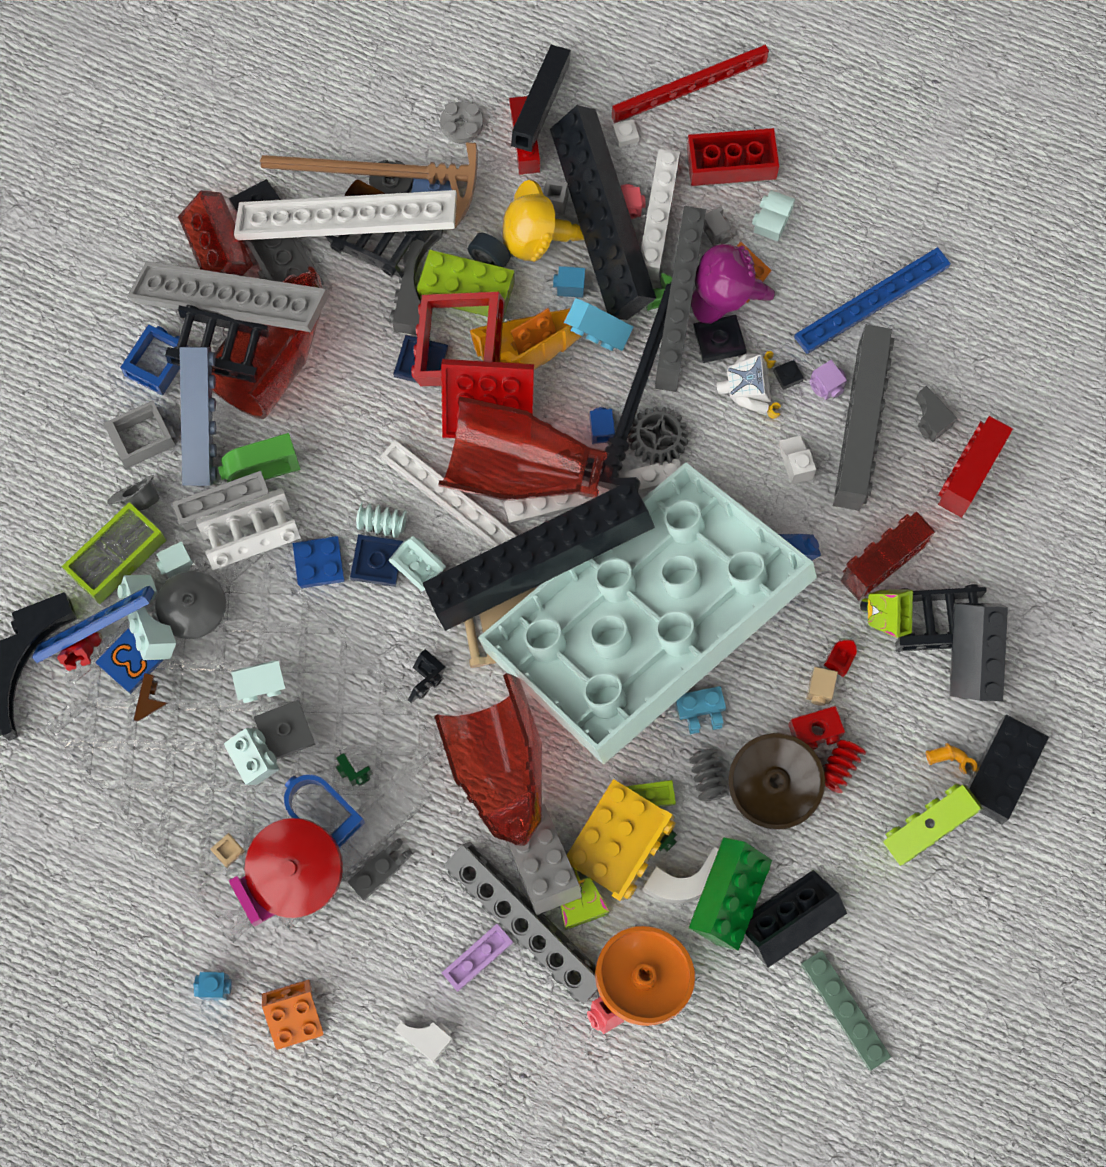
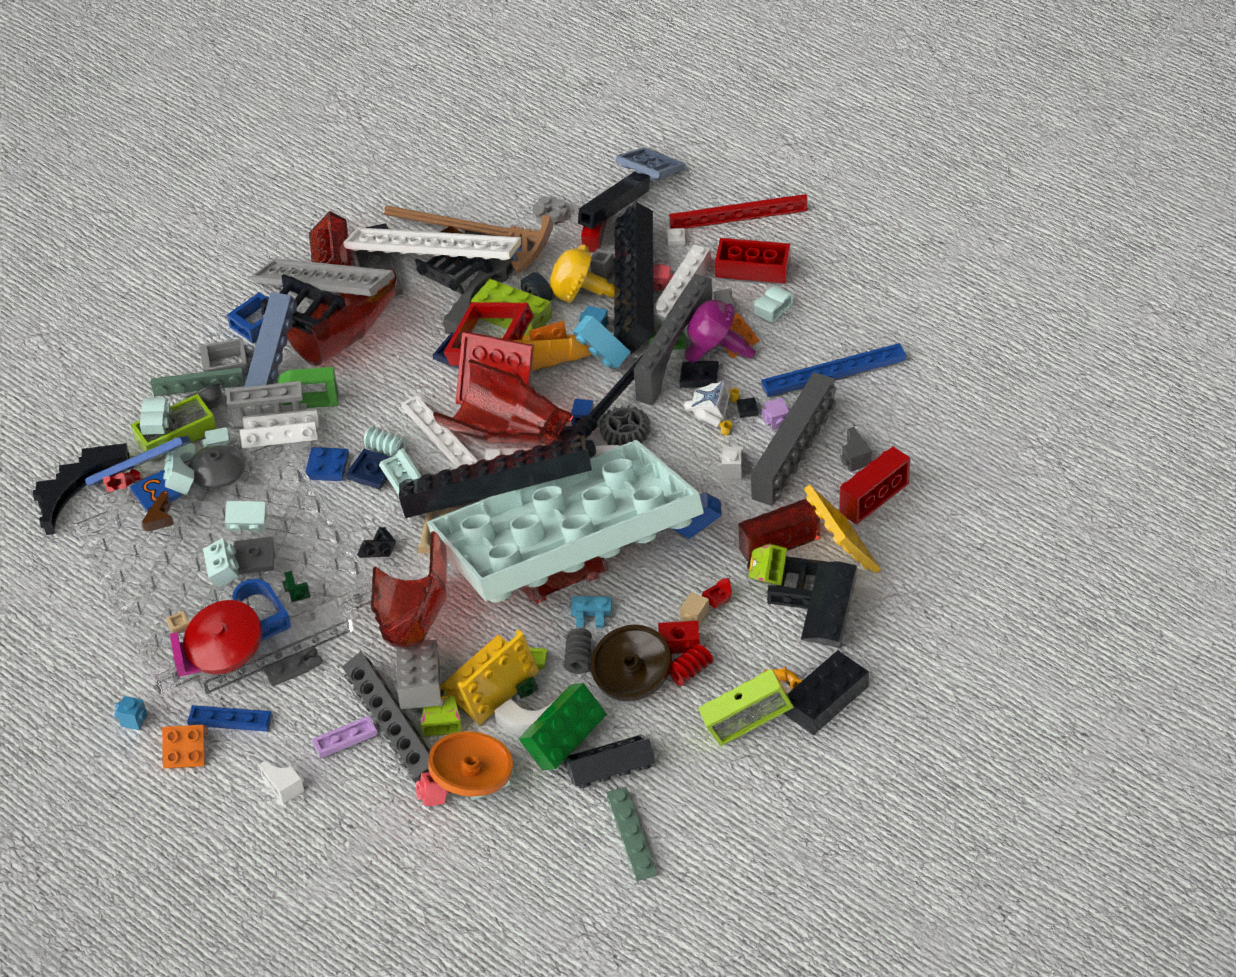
camera: 20 degrees right, 25 degrees down
(90, 553) = (154, 415): none -> light aqua brick
(117, 474) = (197, 381): none -> sand green plate
(330, 960) = (230, 718): none -> blue tile
(564, 29) = (650, 163): none -> sand blue plate
(967, 549) = (842, 529): none -> yellow plate

